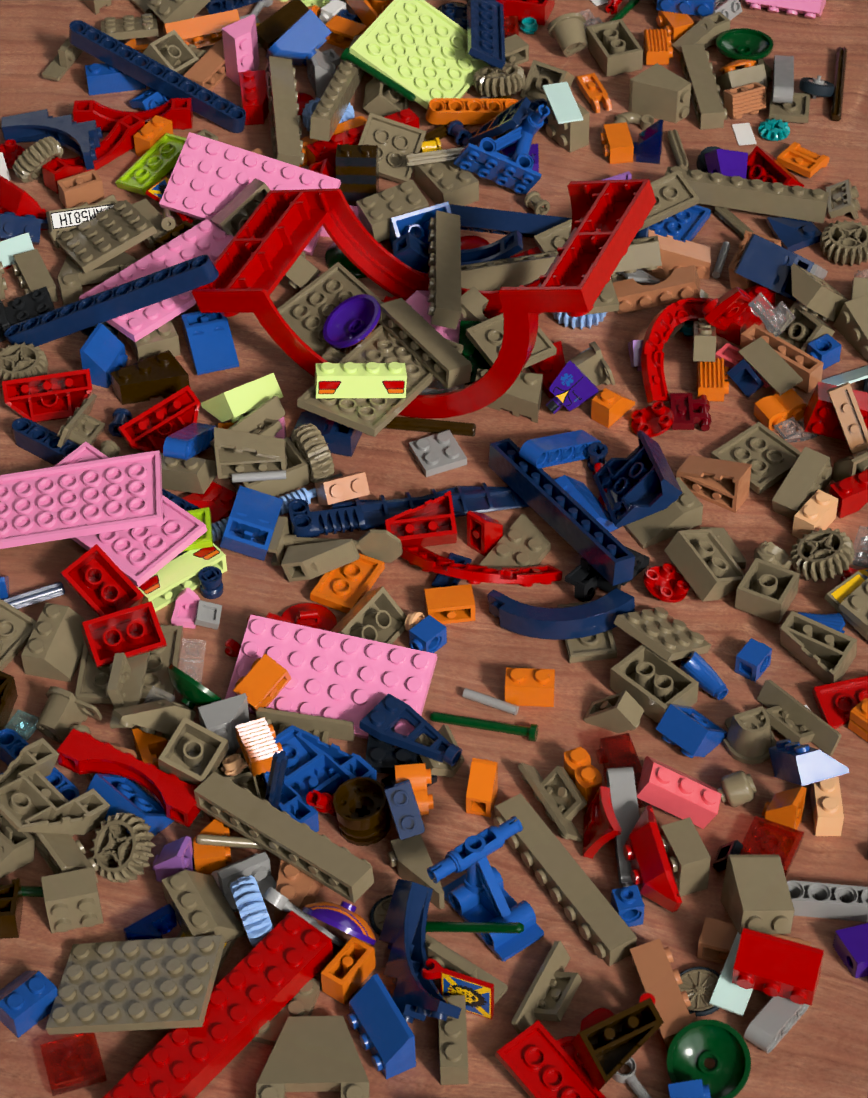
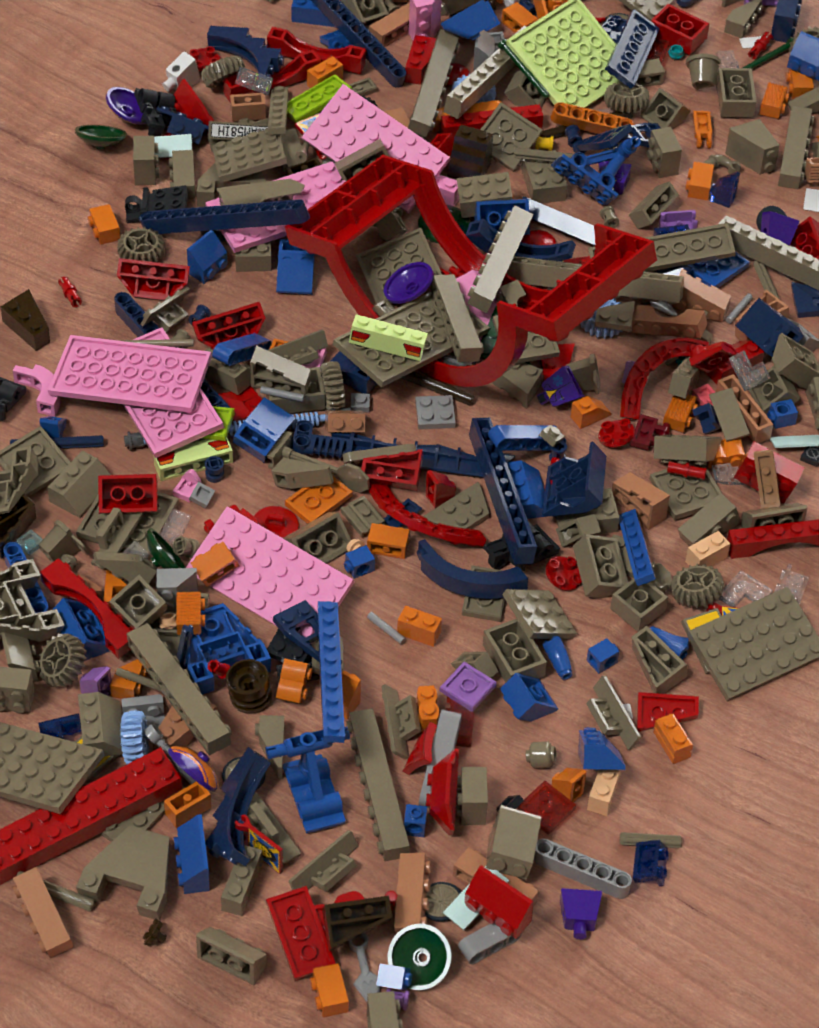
camera: 15 degrees right, 5 degrees up
(80, 158) = (254, 81): none -> clear slope
(102, 583) = (128, 448): red slope -> none
(110, 453) = (167, 342): none -> dark tan bar
(119, 184) = (278, 110): none -> dark tan plate
(140, 267) = (260, 192): none -> dark tan panel
(149, 378) = (236, 285): dark brown wedge -> none
(215, 676) = (185, 547): none -> dark tan wheel
(243, 399) = (300, 324): yellowish green slope -> none
(316, 725) = (242, 609): dark tan bracket -> none
(347, 464) = (360, 402): none -> light grey plate
(377, 520) = (356, 457): none -> dark tan beam
(404, 809) = (276, 695): dark blue panel -> none
(406, 586) = (361, 515): none -> dark tan plate
(463, 763) = (330, 672): none -> blue plate
(474, 927) = (289, 800): dark green bar -> none
(531, 732) = (406, 662): dark green bar -> none
(562, 102) = (663, 134): light aqua piece -> none
(583, 168) = (653, 204): none -> dark tan brick
(587, 438) = (552, 435): none -> dark tan plate
(620, 736) = (468, 686): none -> medium lavender tile
(662, 531) = (577, 528): none -> dark tan slope
(677, 149) = (748, 200): dark tan axle -> none
(677, 793) = (492, 743): coral slope -> none
(739, 532) = (636, 547): none -> blue plate
(740, 414) = (686, 448): none -> dark tan slope
(749, 736) = (571, 716): dark tan container -> none
(751, 436) = (686, 470): none -> red pin

